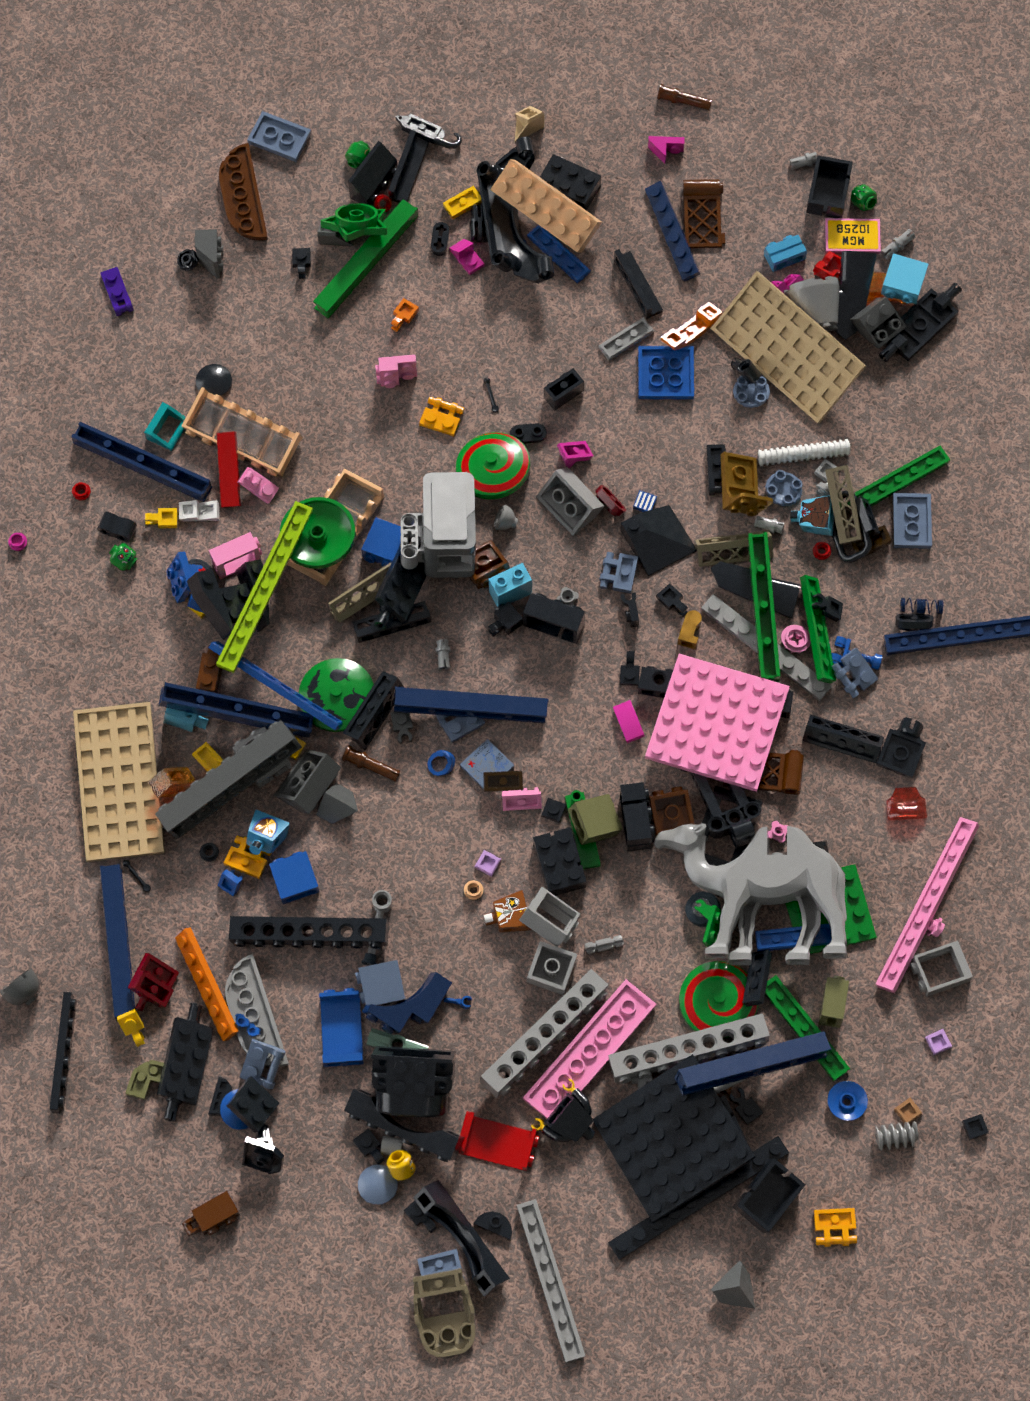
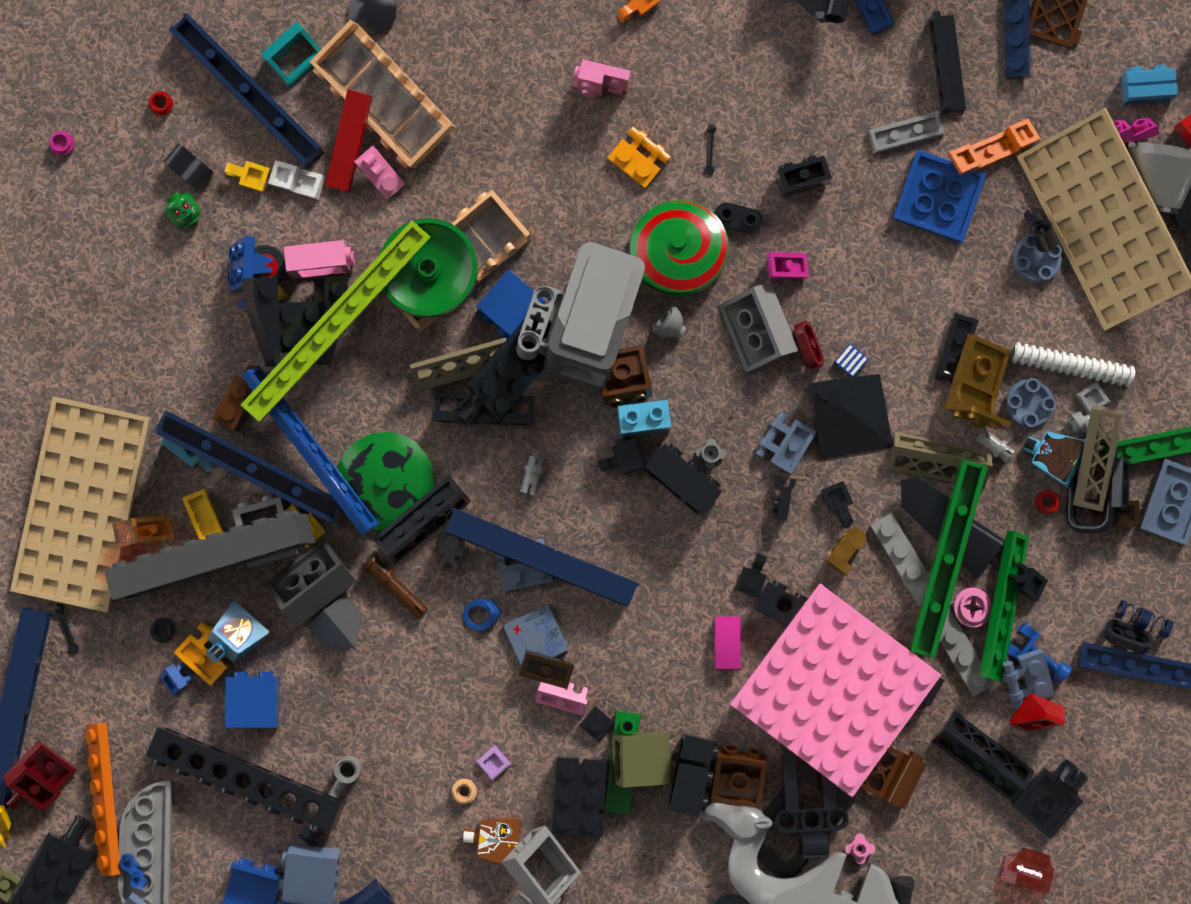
camera: 15 degrees right, 15 degrees up
(868, 695) = (1038, 714): none -> red slope

